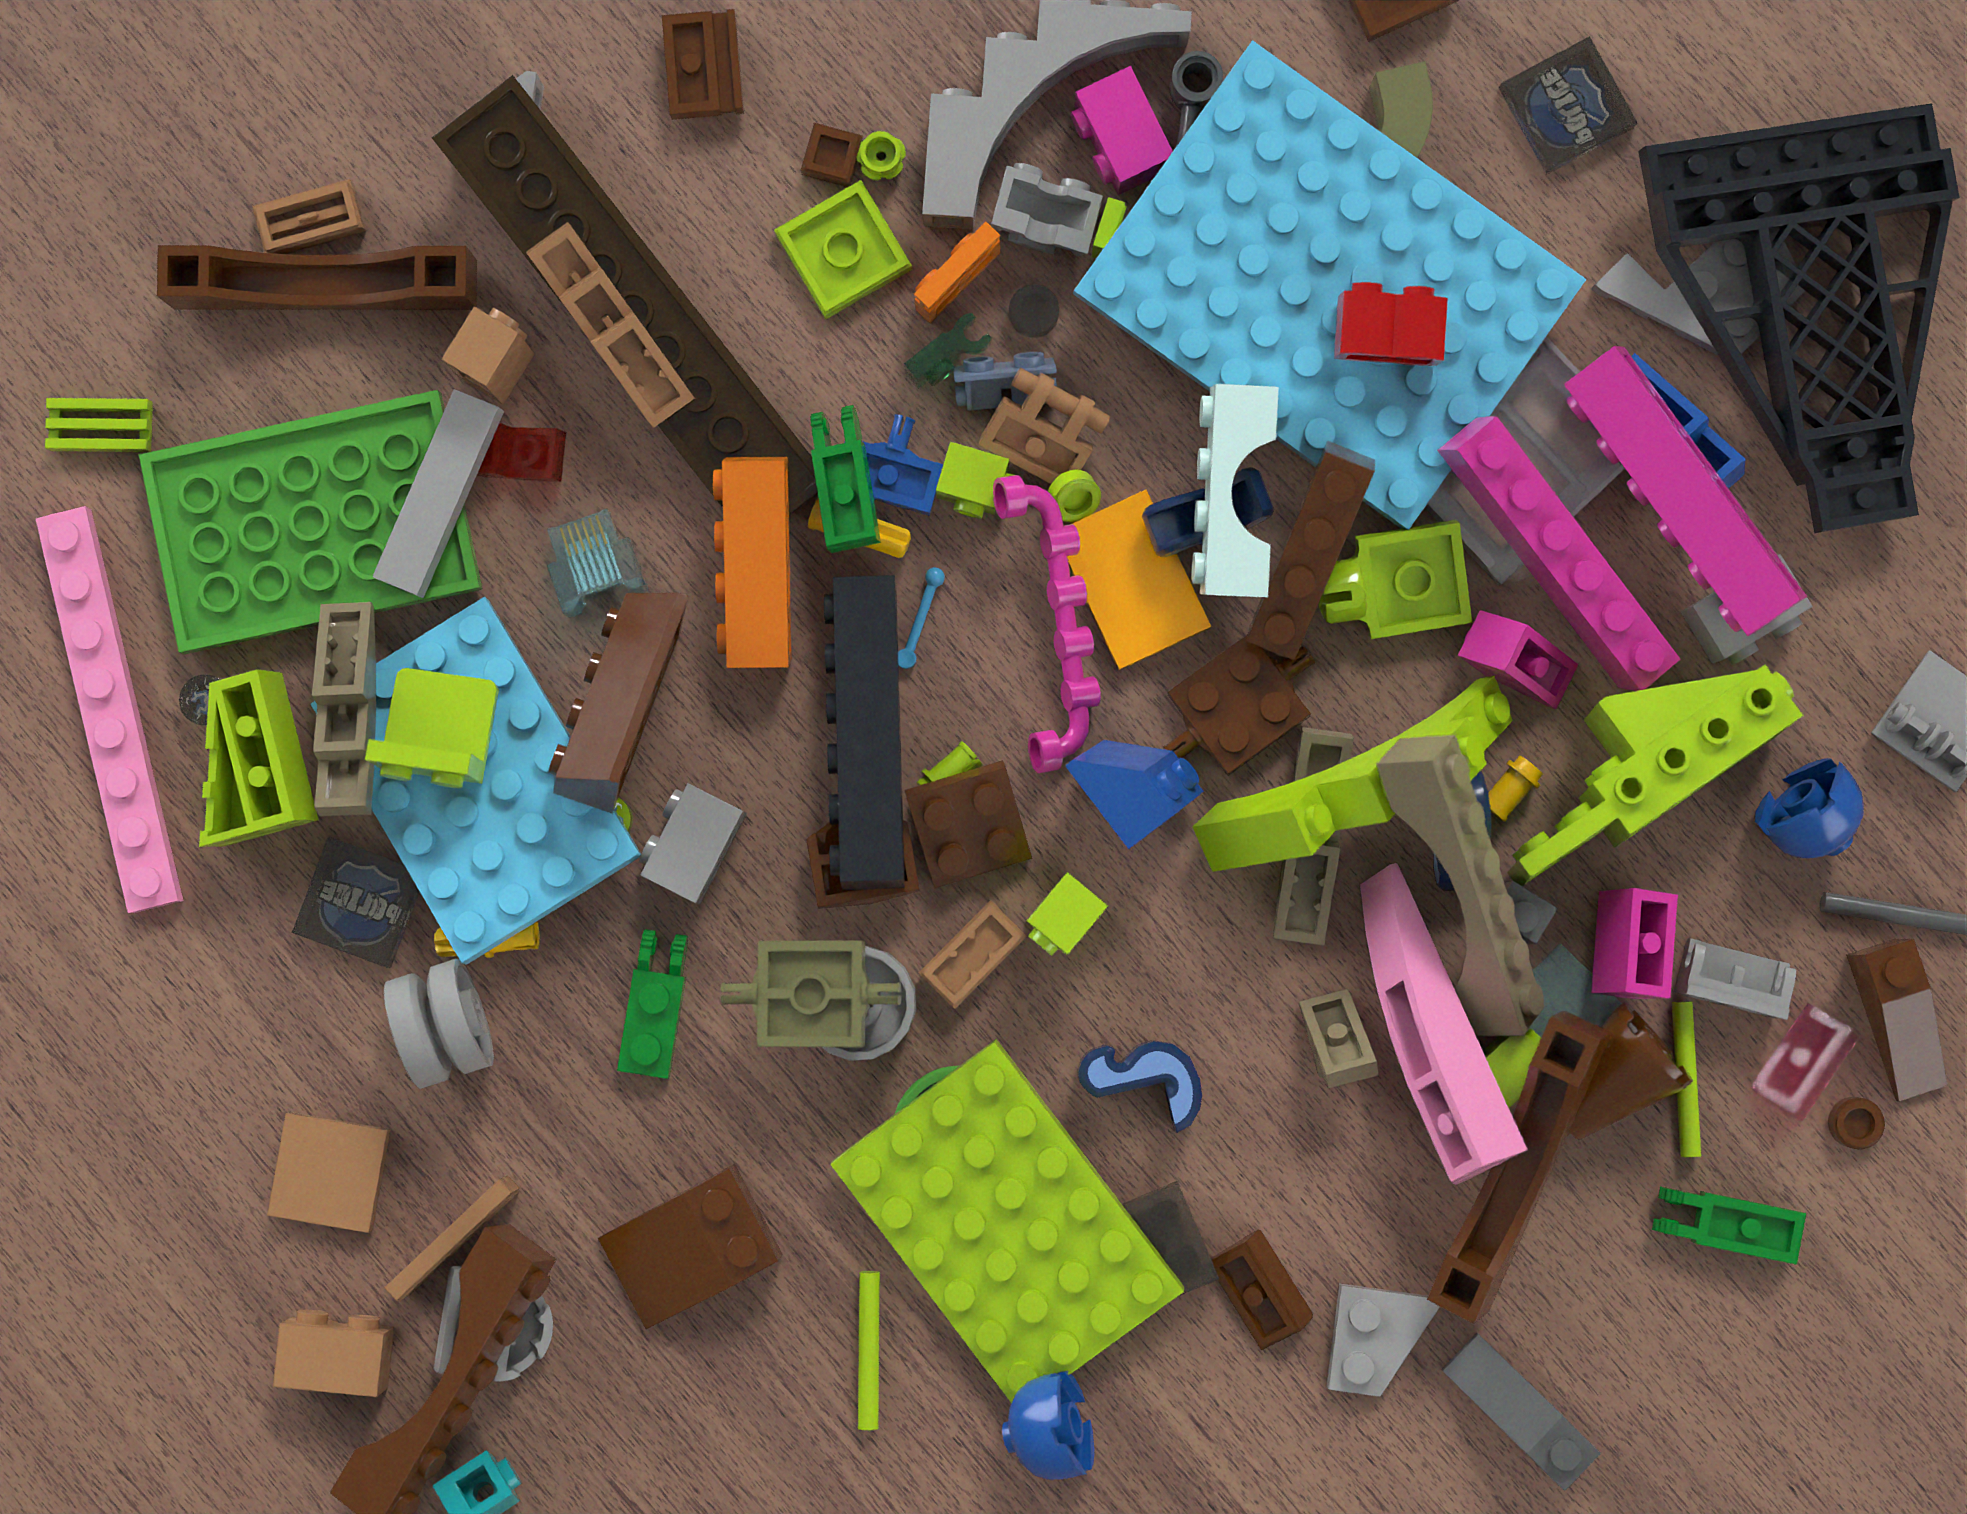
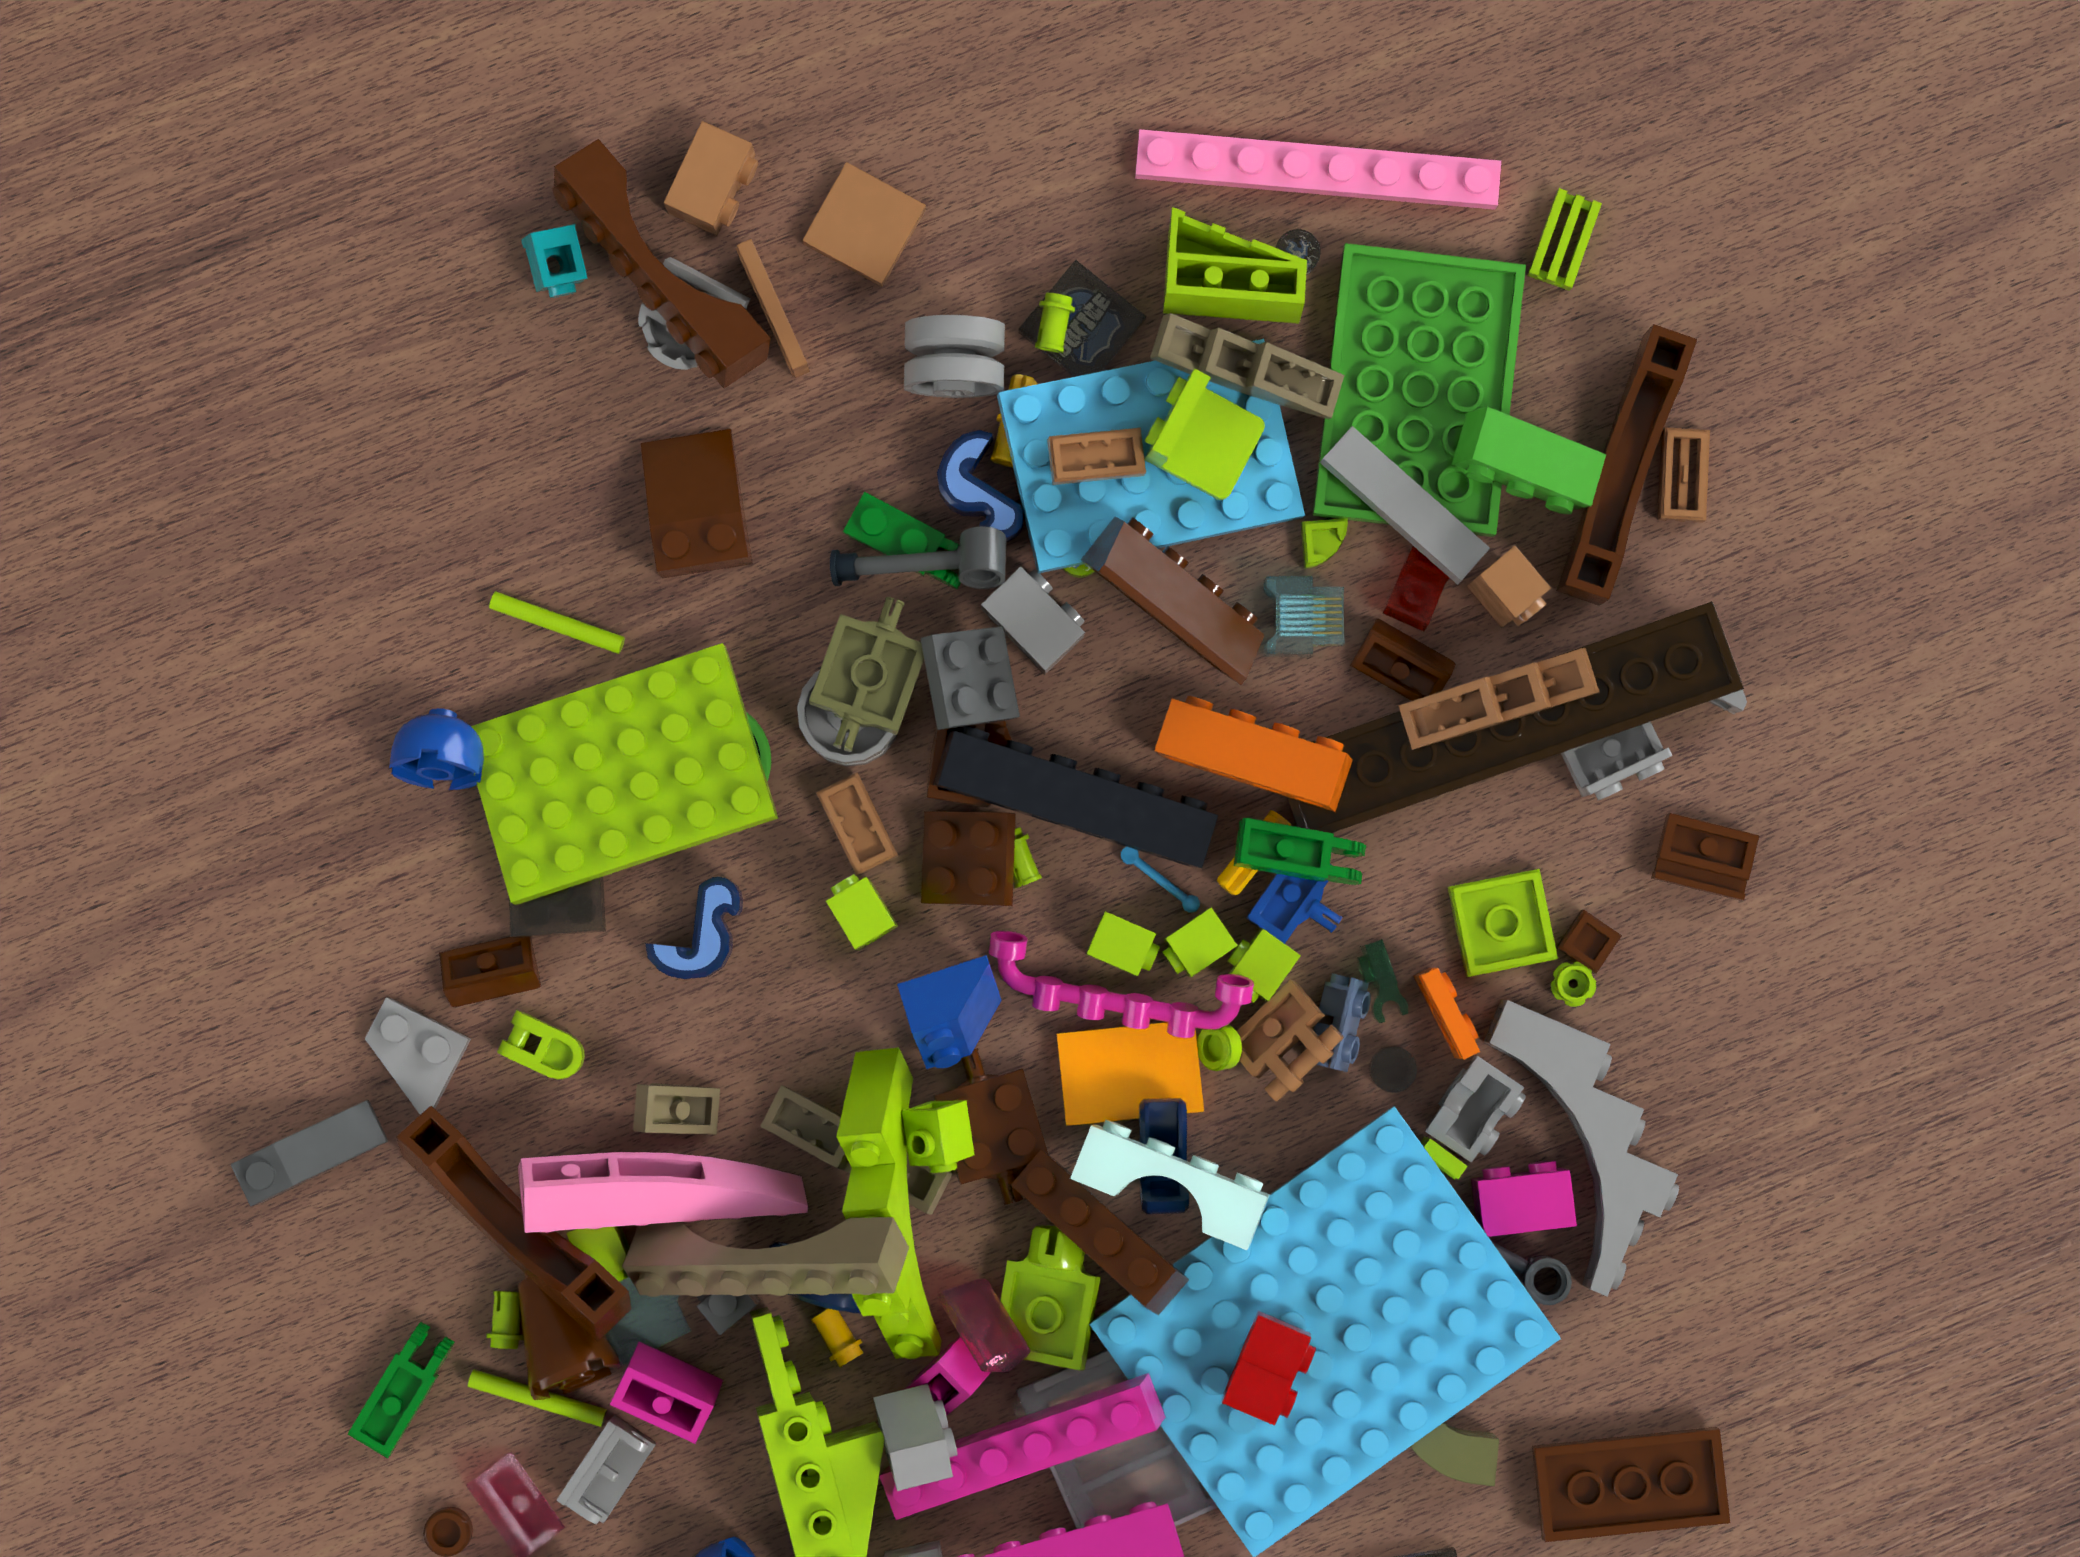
camera: 100 degrees right, 0 degrees up
(347, 380) = (1528, 460): none -> bright green brick
(366, 931) = (1054, 322): none -> lime pin
(495, 834) = (1096, 456): none -> medium nougat plate
(505, 571) = (1321, 540): none -> lime tile
(583, 954) = (970, 495): none -> animal
(606, 443) = (1402, 662): none -> reddish brown slope
(641, 196) = (1606, 762): none -> light grey bracket
(647, 922) = (978, 558): none -> dark grey piece
(777, 886) = (970, 677): none -> dark grey plate
(974, 553) = (1198, 943): none -> lime brick
(1002, 631) = (1123, 945): none -> lime brick
(1268, 753) = (938, 1134): none -> lime brick
(1325, 1185) = (558, 1052): none -> lime plate
(1448, 637) = (984, 1326): none -> clear pink slope
(1591, 666) = (915, 1436): none -> light grey brick
(1619, 1140) = (505, 1320): none -> lime pin

